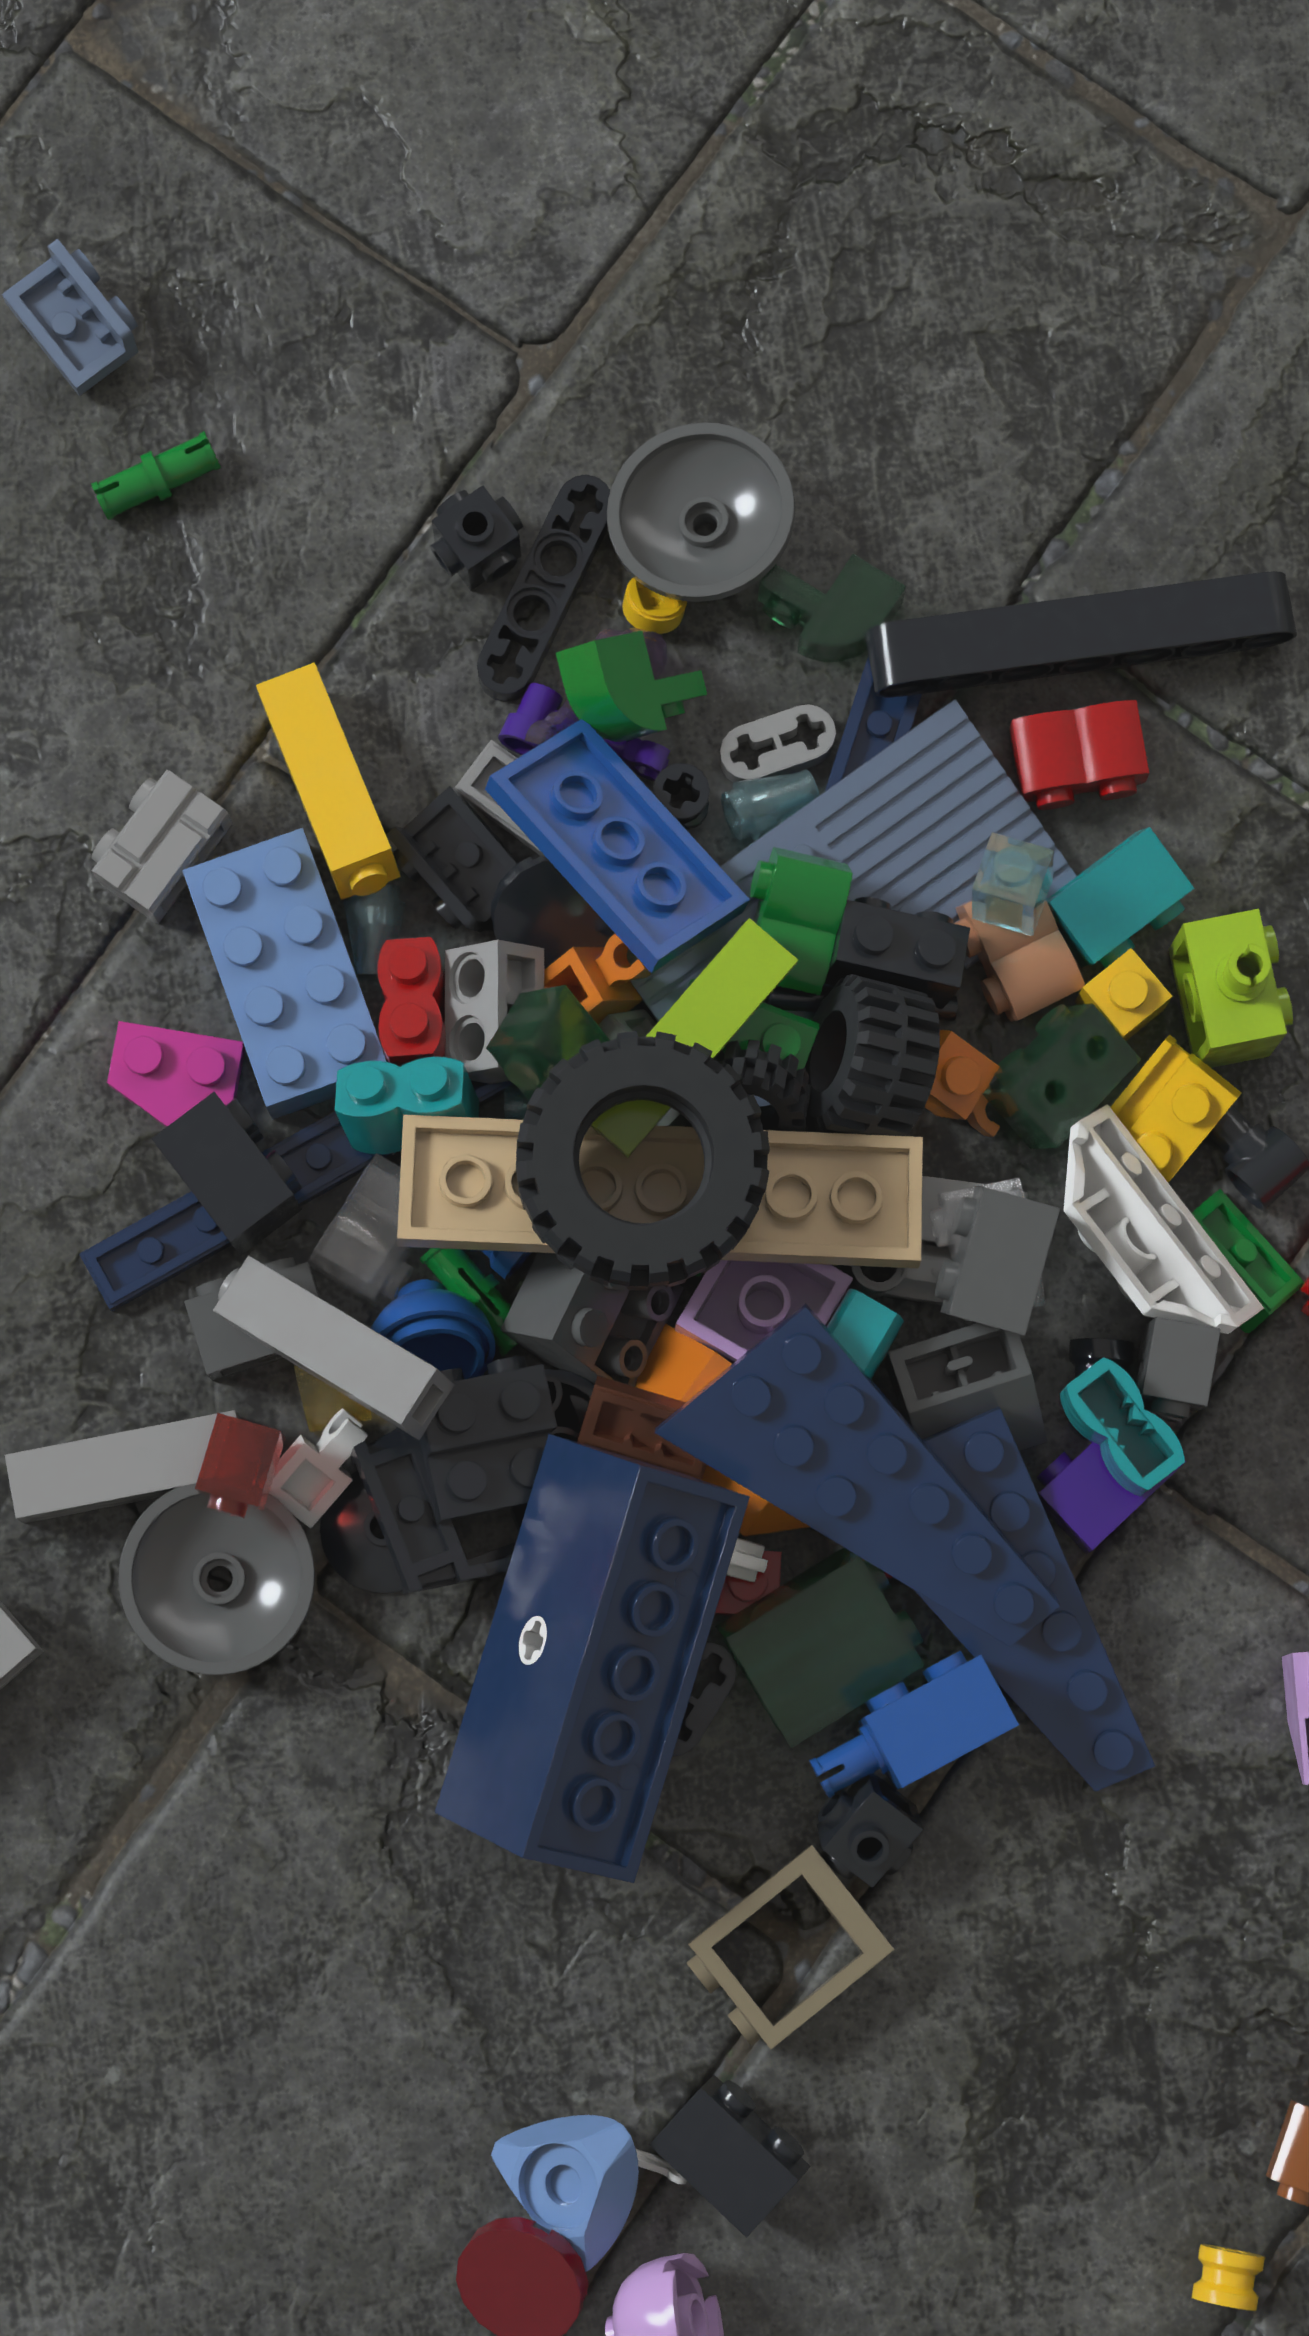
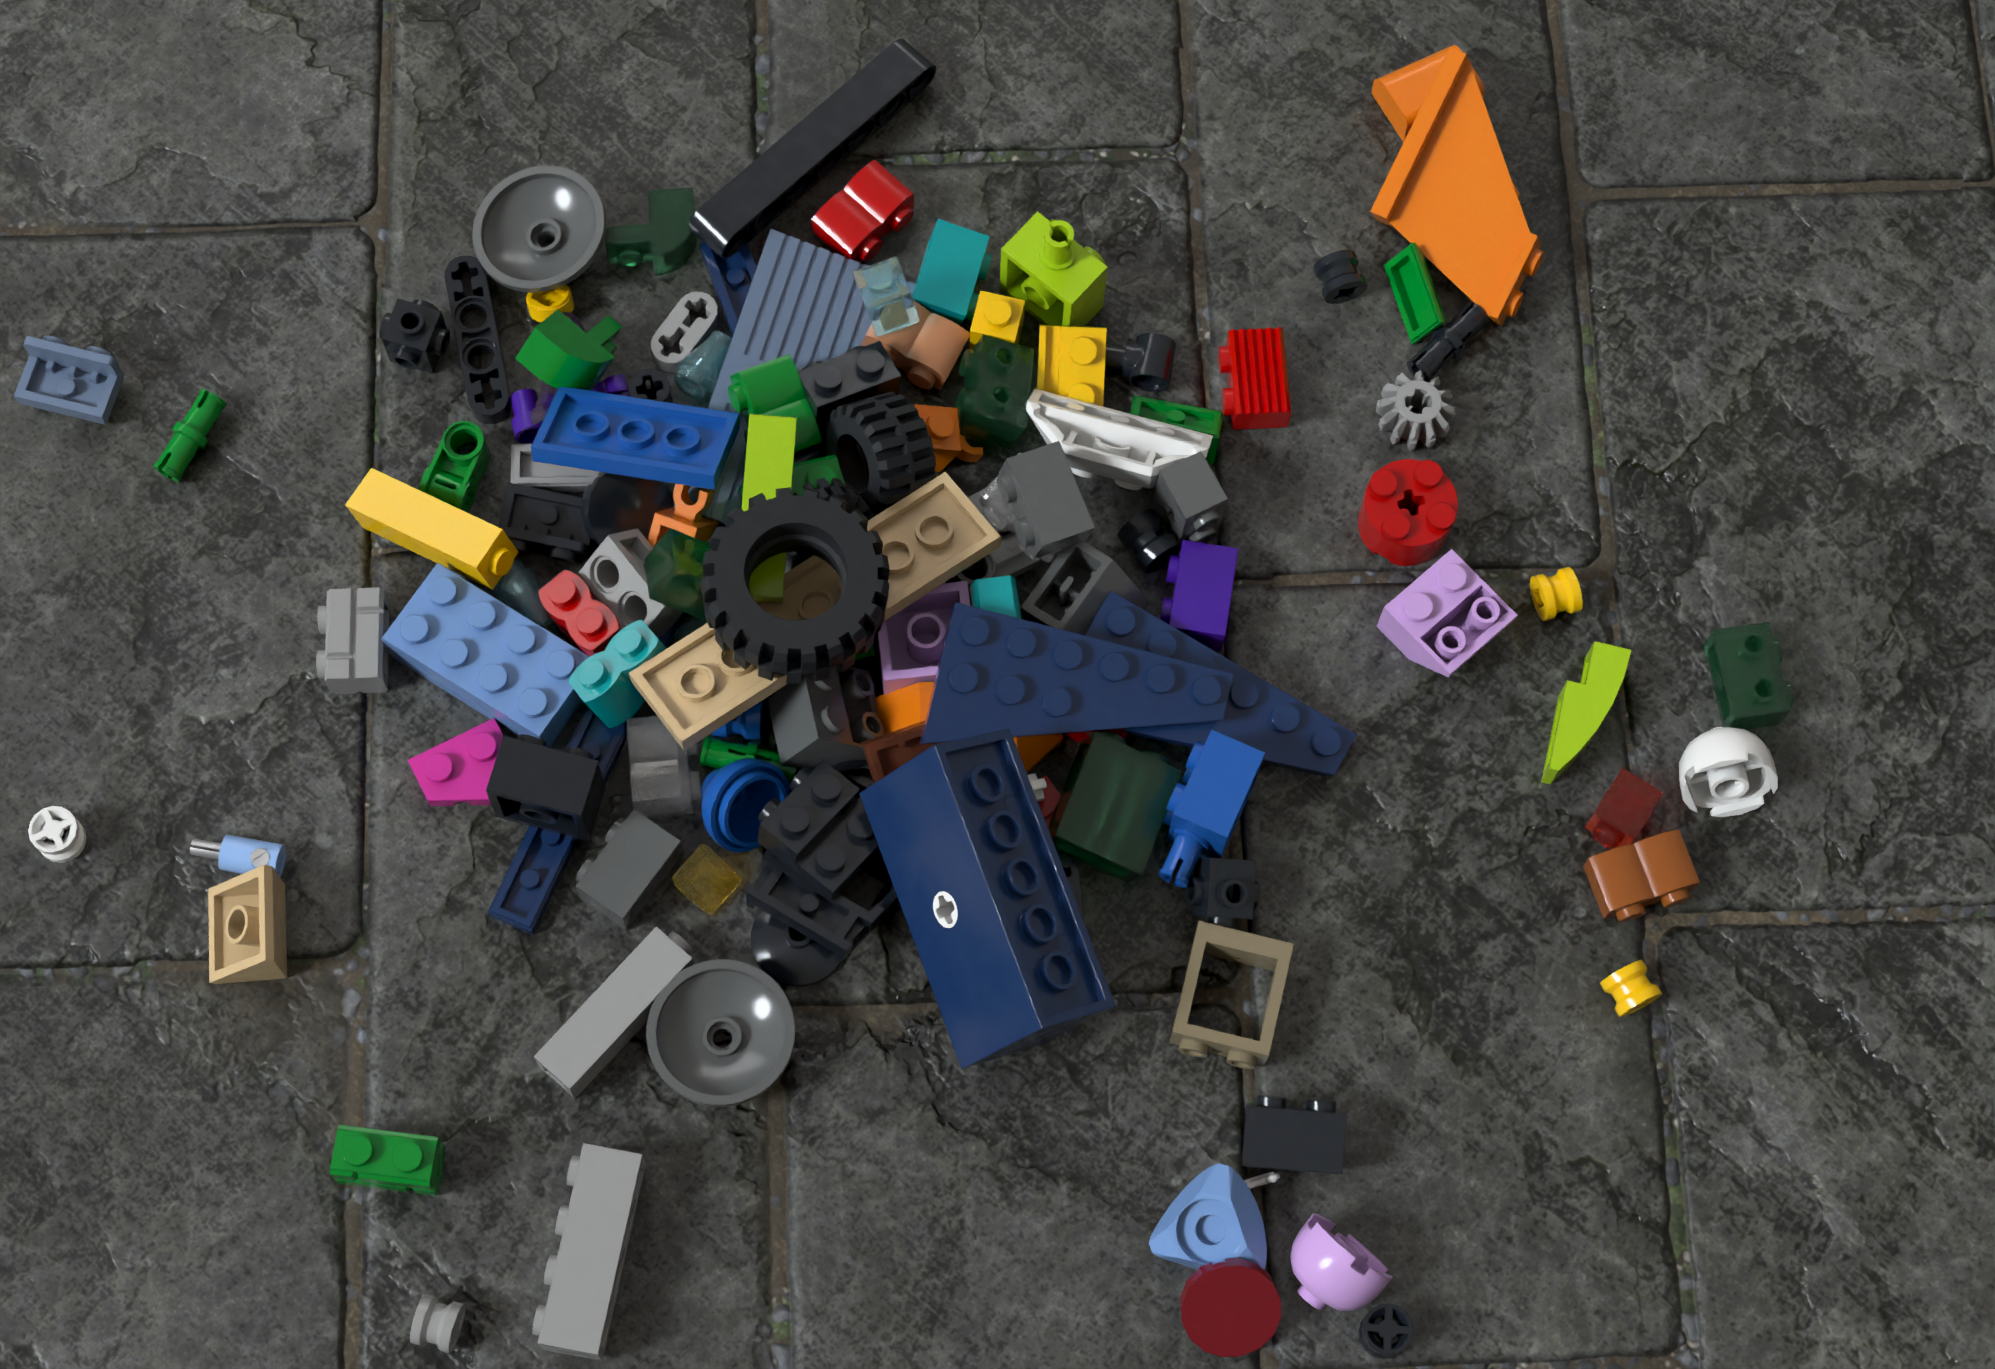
camera: 40 degrees left, 10 degrees down
(239, 1465) = (685, 950): clear red brick -> none
(312, 1475) = (731, 933): white plate -> none
(333, 1346) = (689, 835): light grey brick -> none
(404, 728) = (455, 476): none -> green piece
(1111, 1413) = (1179, 545): teal brick -> none

